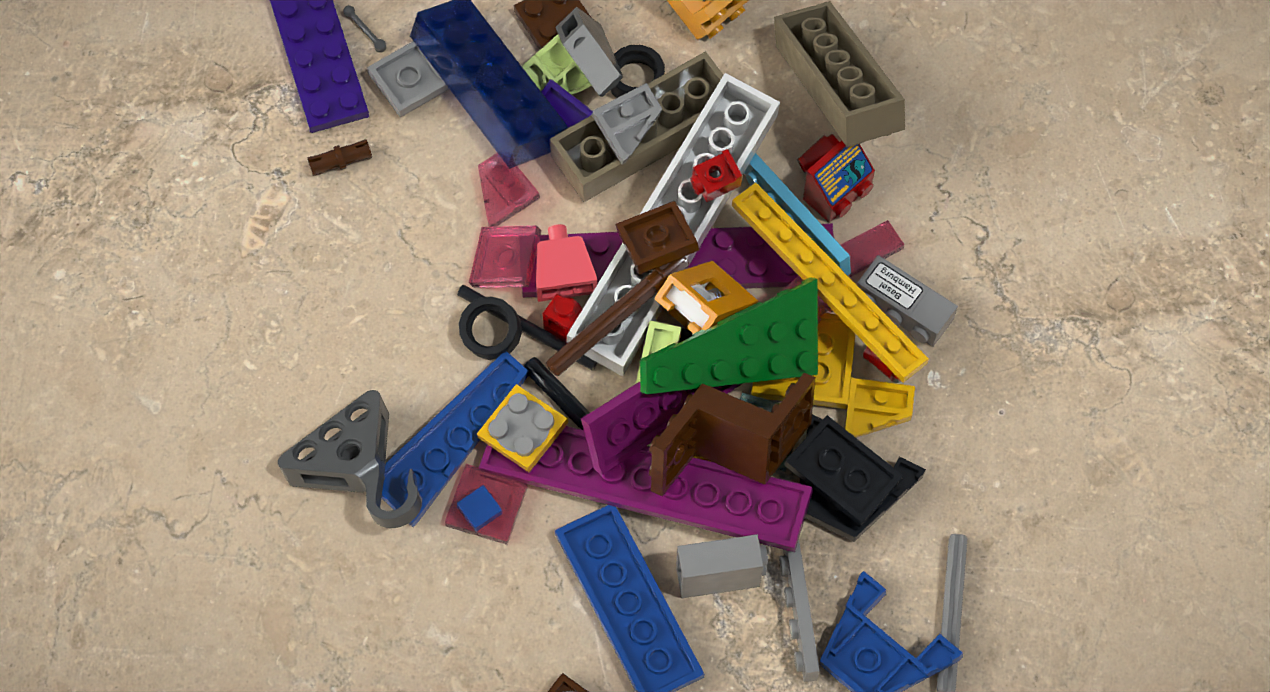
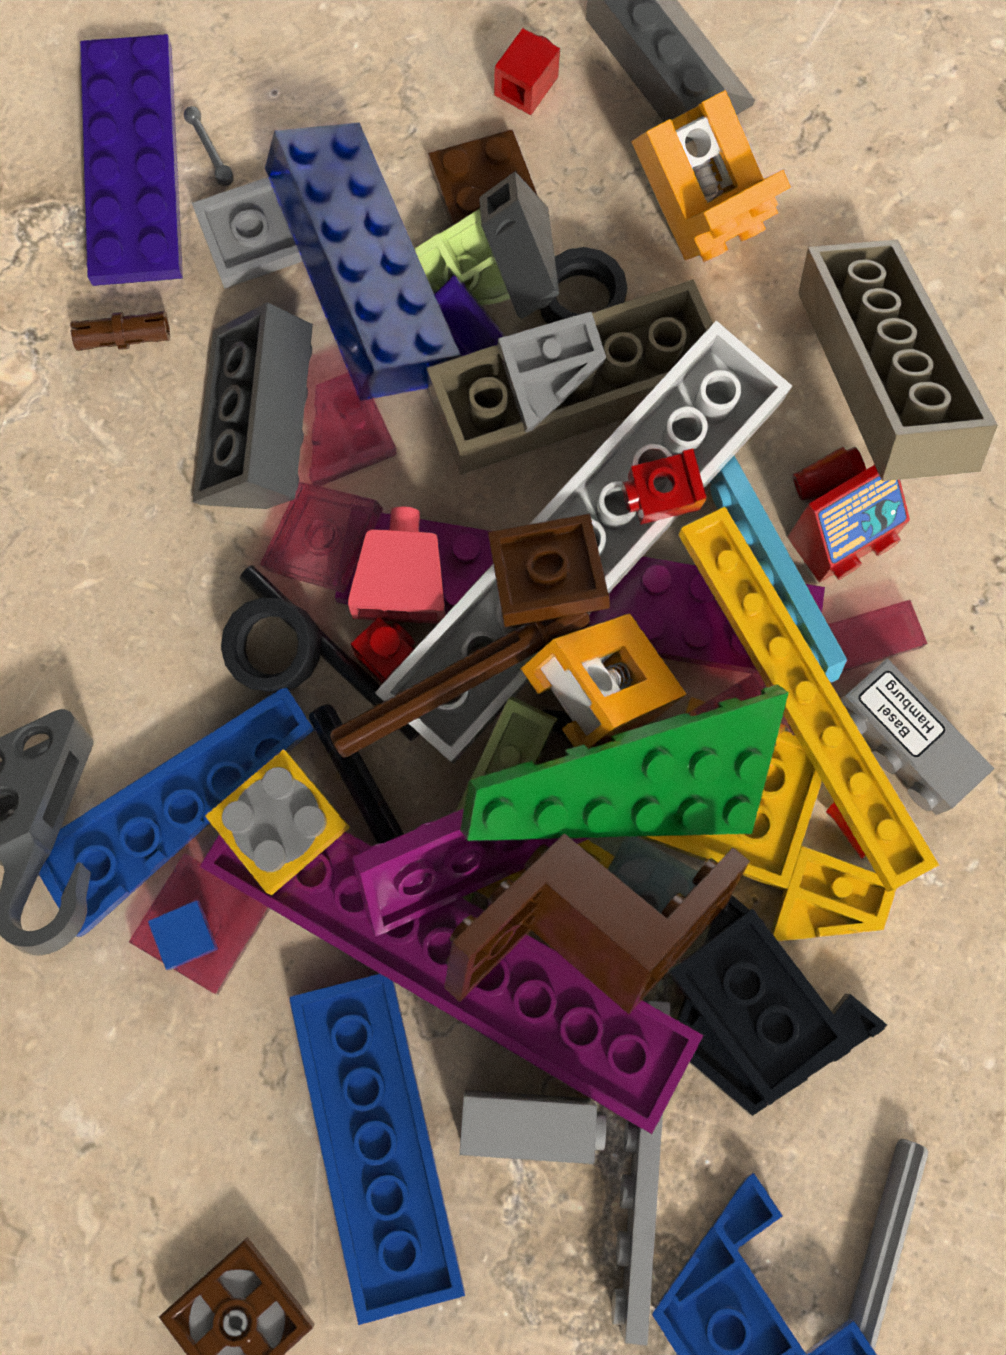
camera: 10 degrees right, 10 degrees up
(440, 189) = (254, 410): none -> dark grey slope

